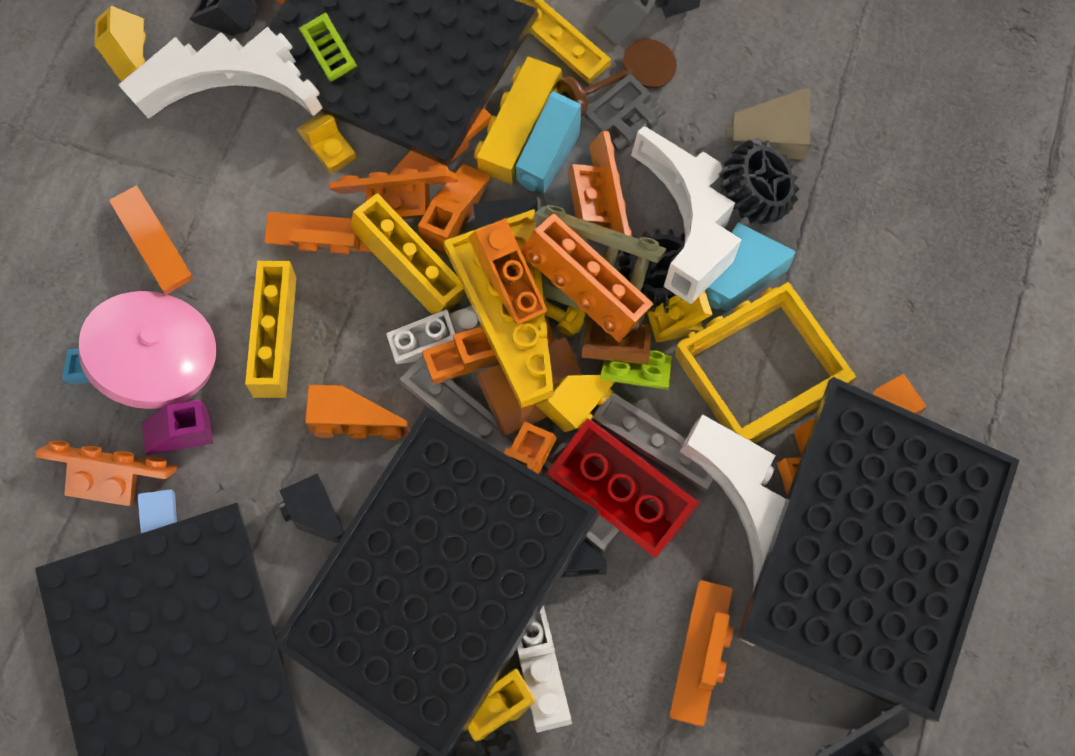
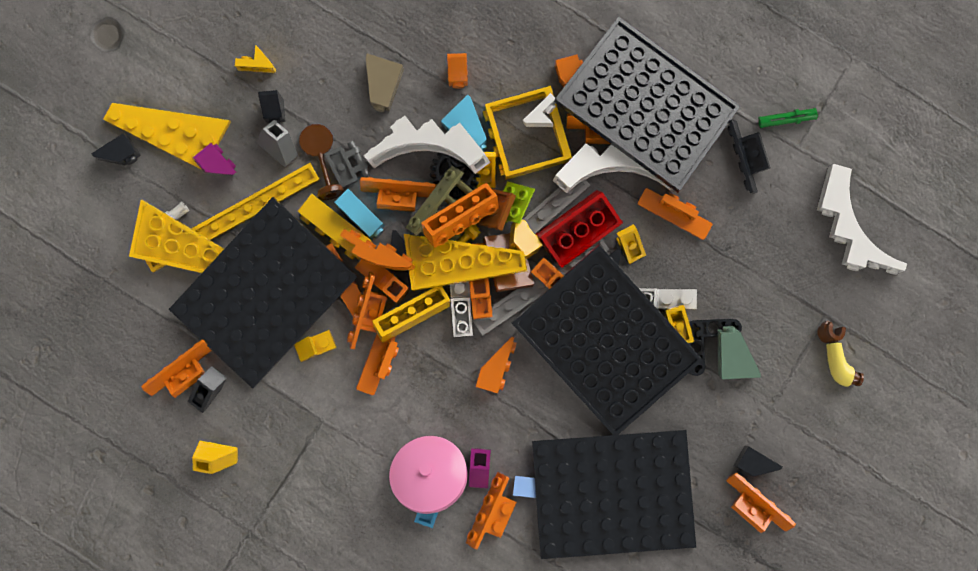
camera: 75 degrees left, 15 degrees up
(151, 240) = (354, 462): orange slope -> none
(183, 71) = (245, 424): white arch -> none
(271, 329) = (433, 401): yellow brick -> none
(311, 509) = (546, 400): black slope -> none
(314, 29) = (242, 327): lime slope -> none
(488, 171) = (381, 256): none -> orange slope
(507, 270) = (444, 257): orange slope -> none
(623, 584) = (630, 244): none -> yellow slope
(759, 181) = (418, 101): black gear -> none
(796, 362) = (537, 117): none -> white slope
(831, 227) = (457, 70): none -> orange slope

